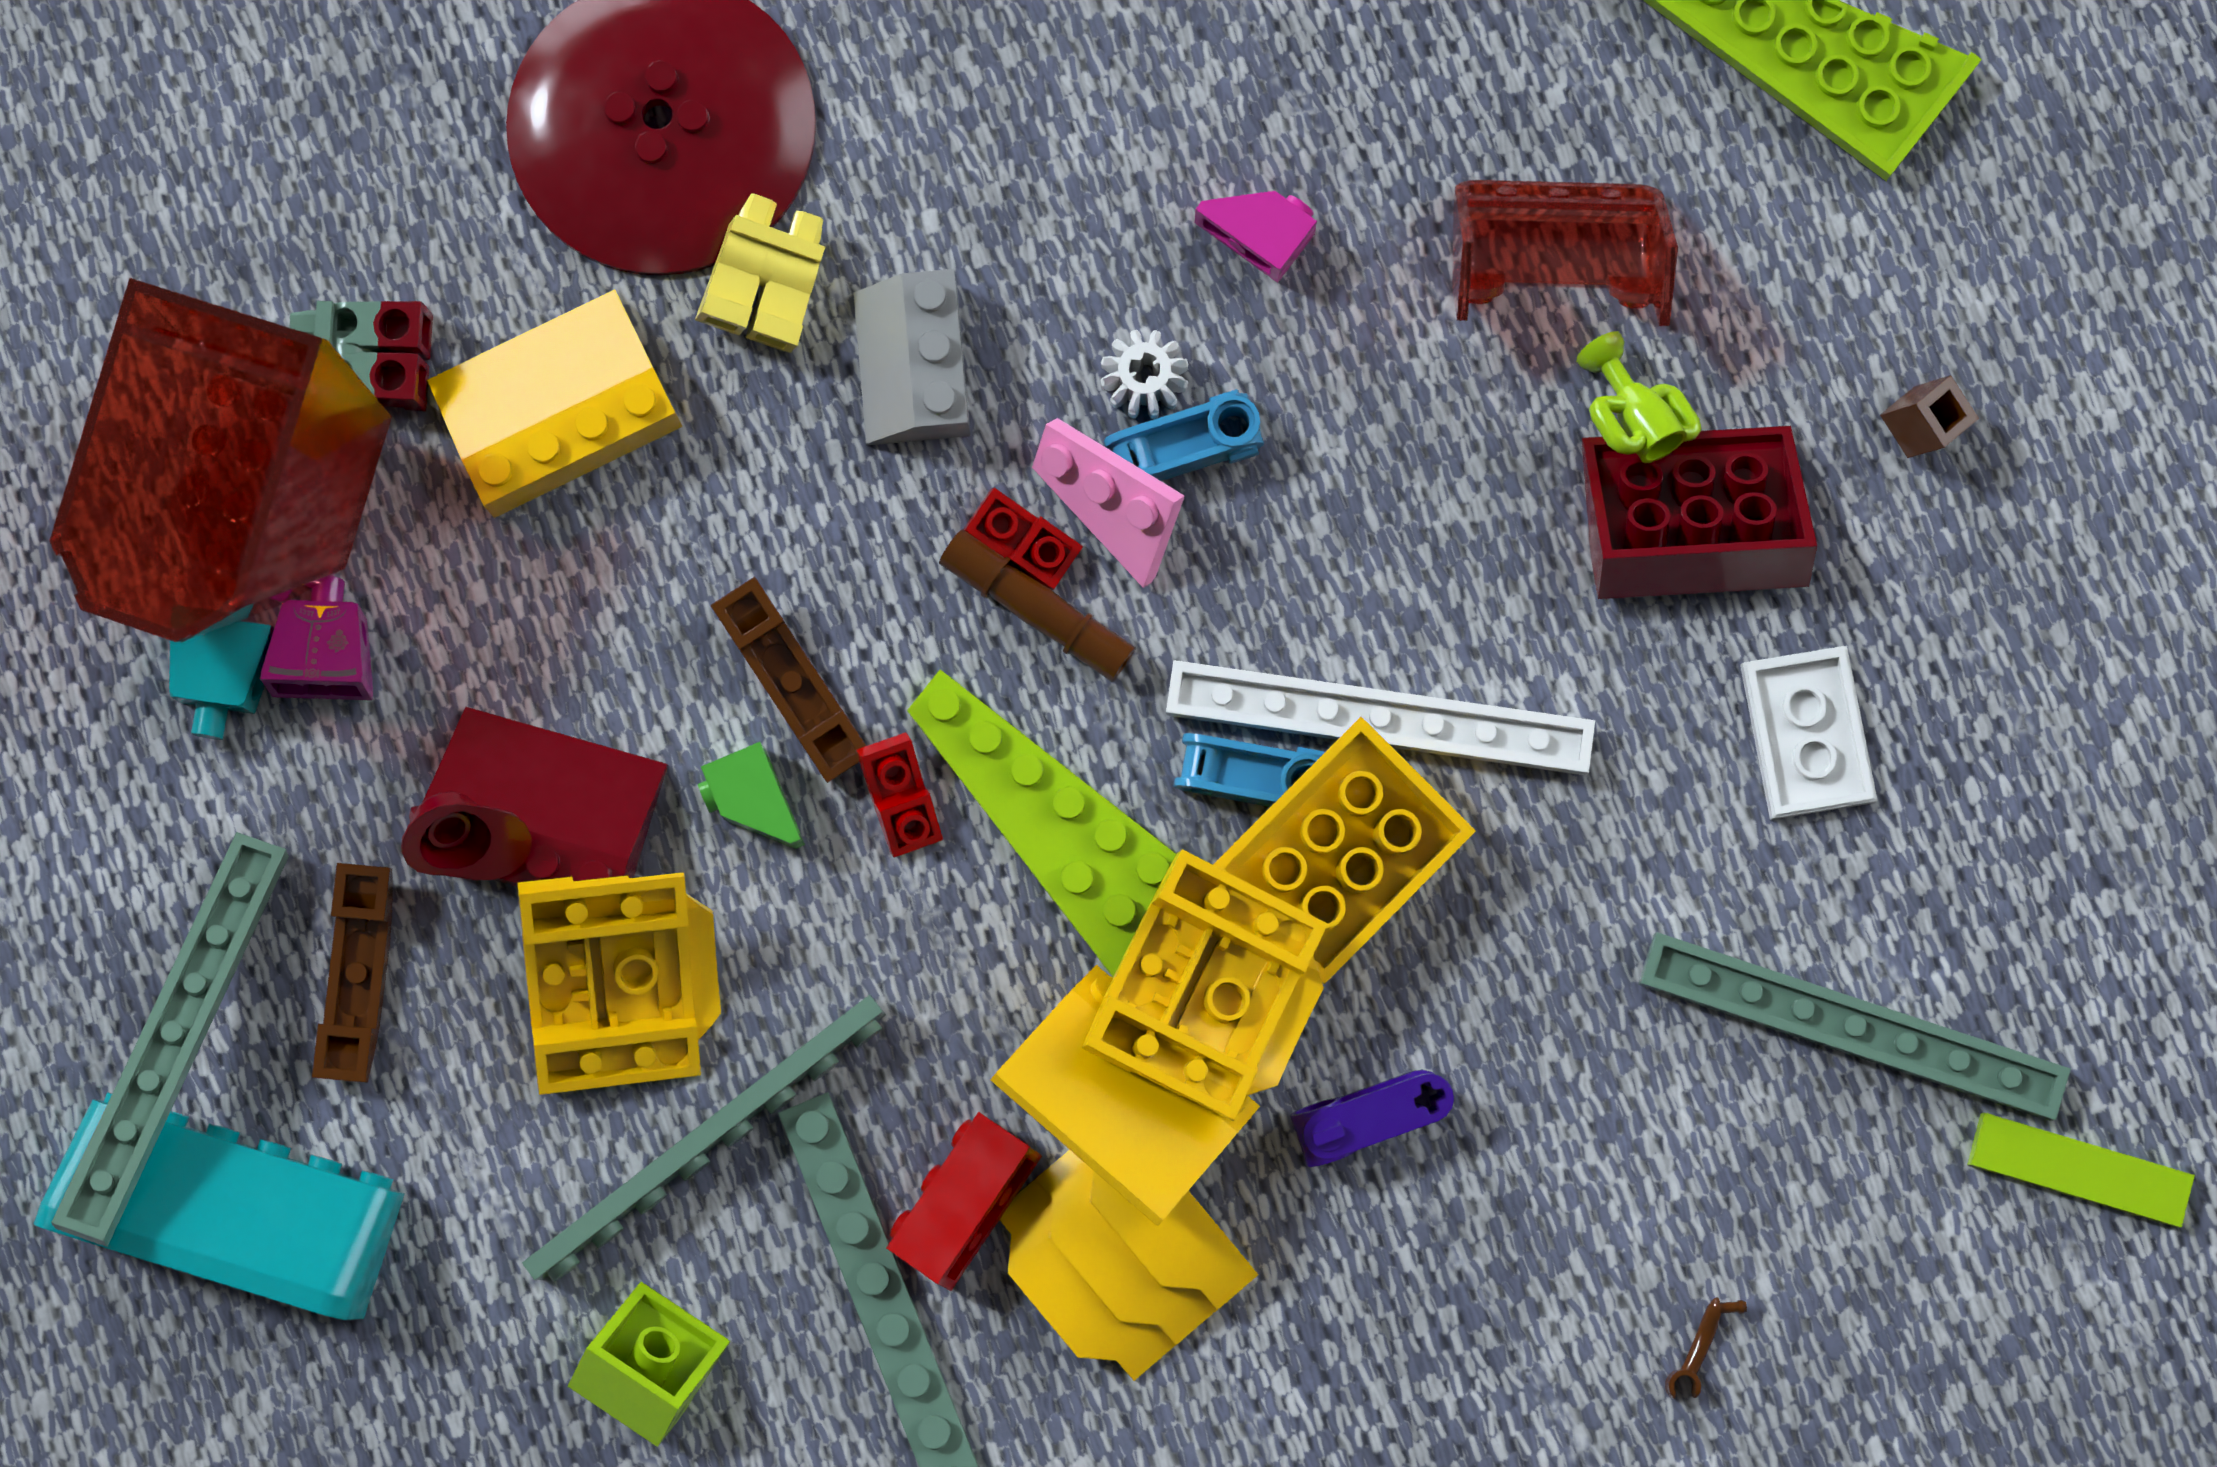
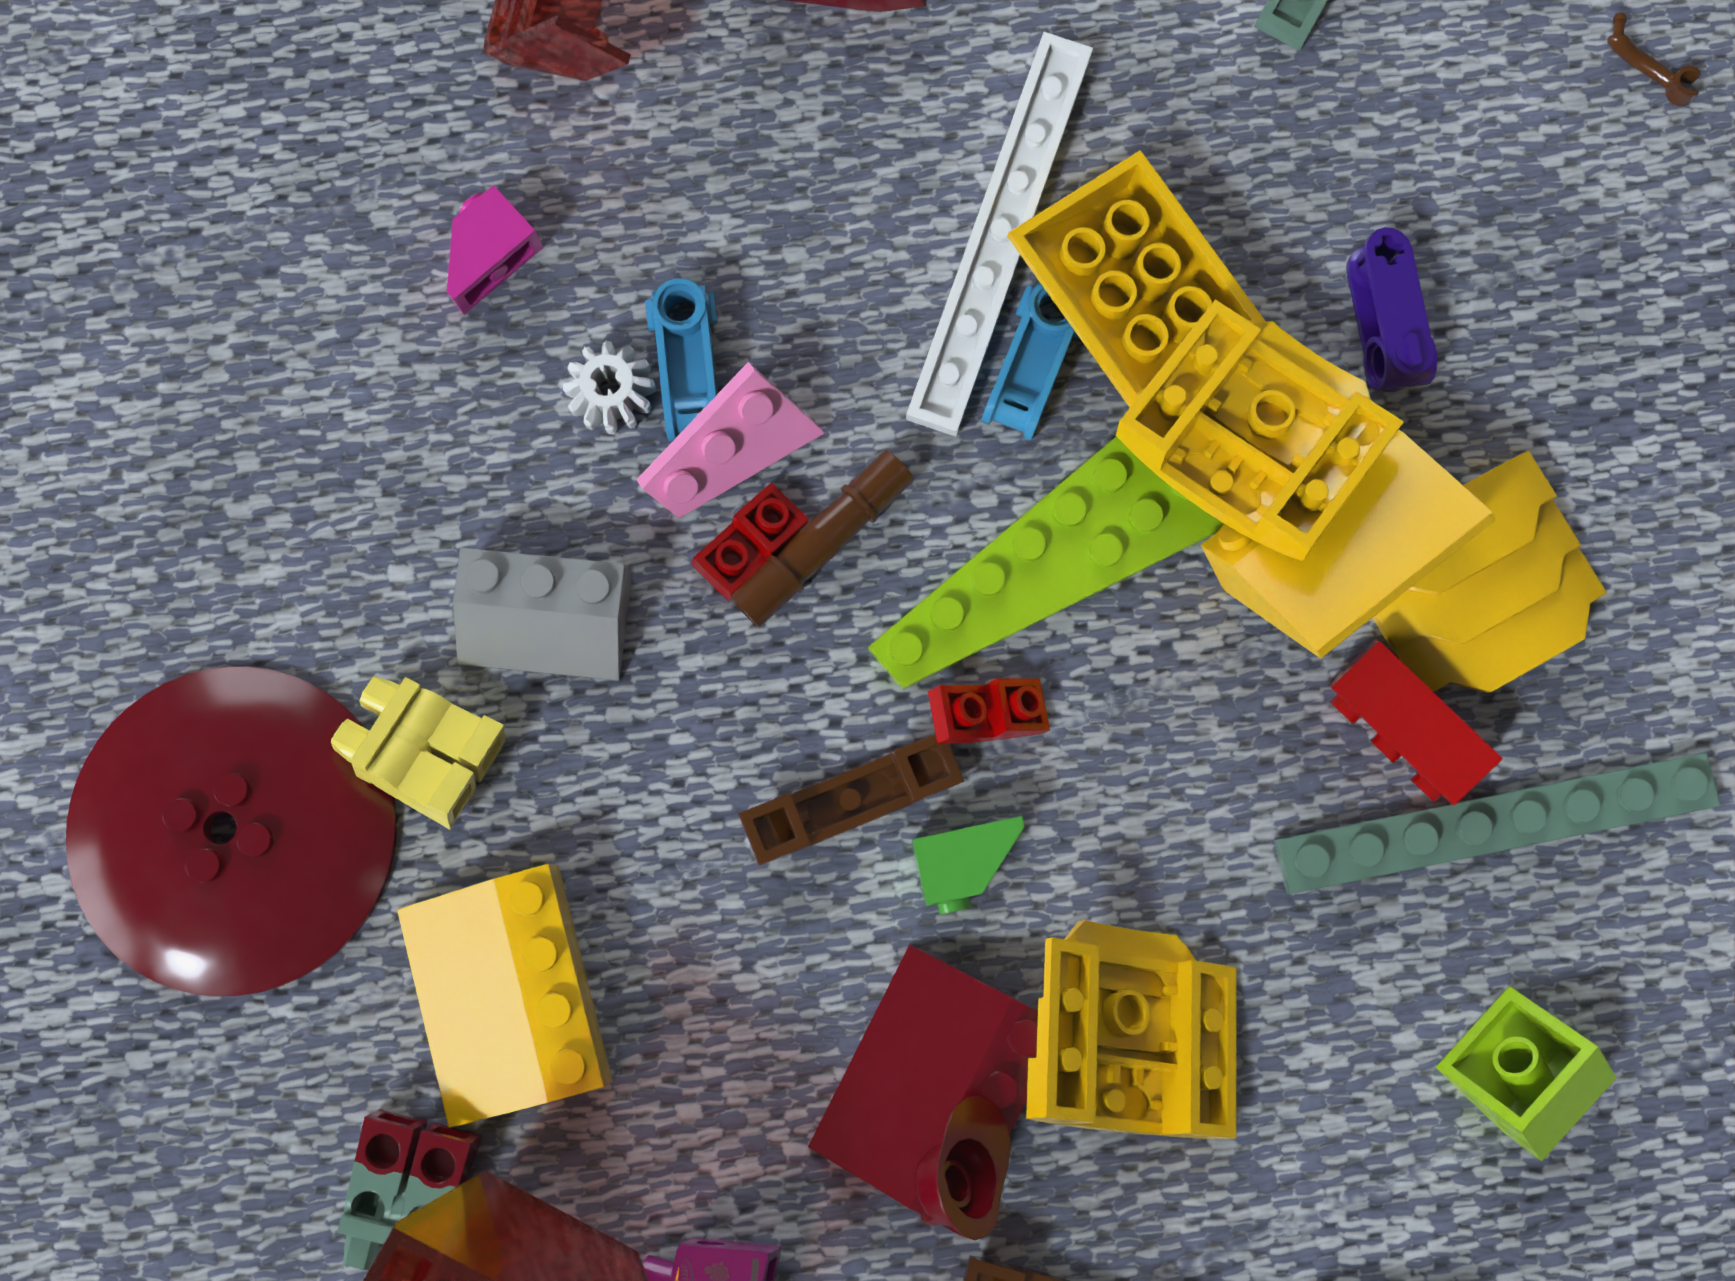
camera: 80 degrees left, 0 degrees up
(688, 1154) = (1319, 991): sand green plate -> none

